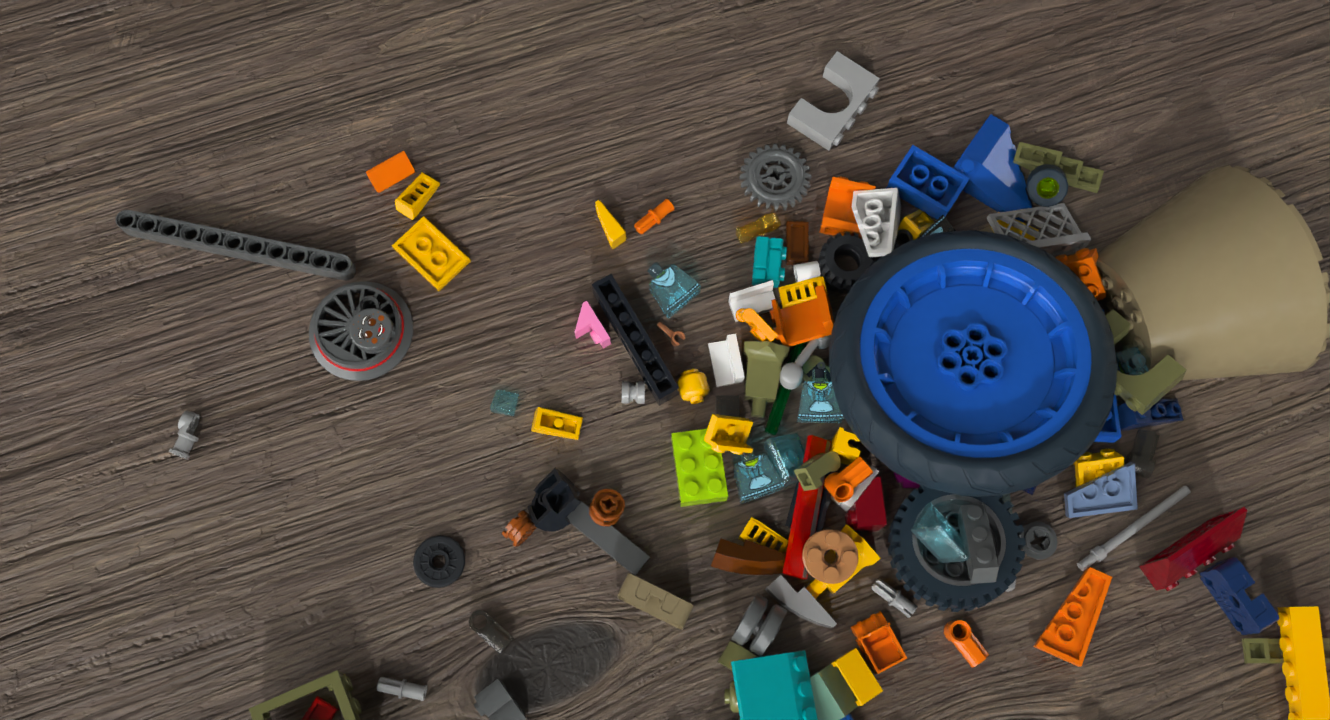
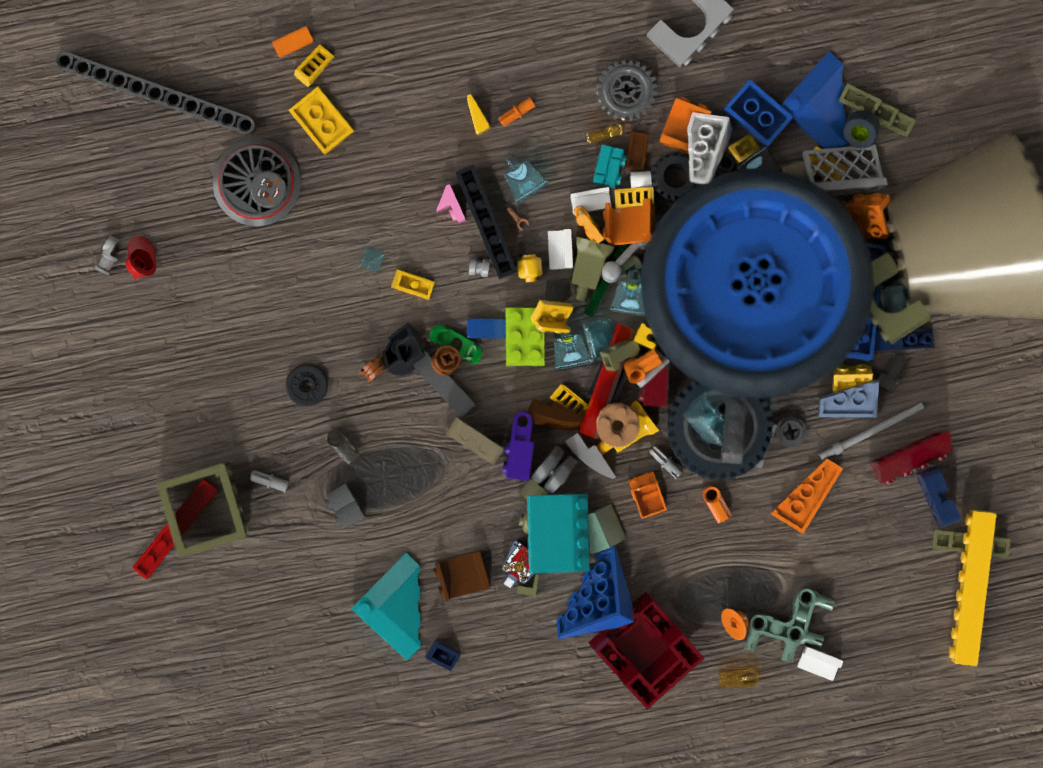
camera: 15 degrees right, 15 degrees up
(224, 431) = (140, 257): none -> red piece
(633, 494) = (469, 351): none -> green piece
(650, 464) = (486, 328): none -> blue slope
(712, 605) = (519, 450): none -> dark purple brick
(858, 676) = (625, 518): yellow hinge -> none

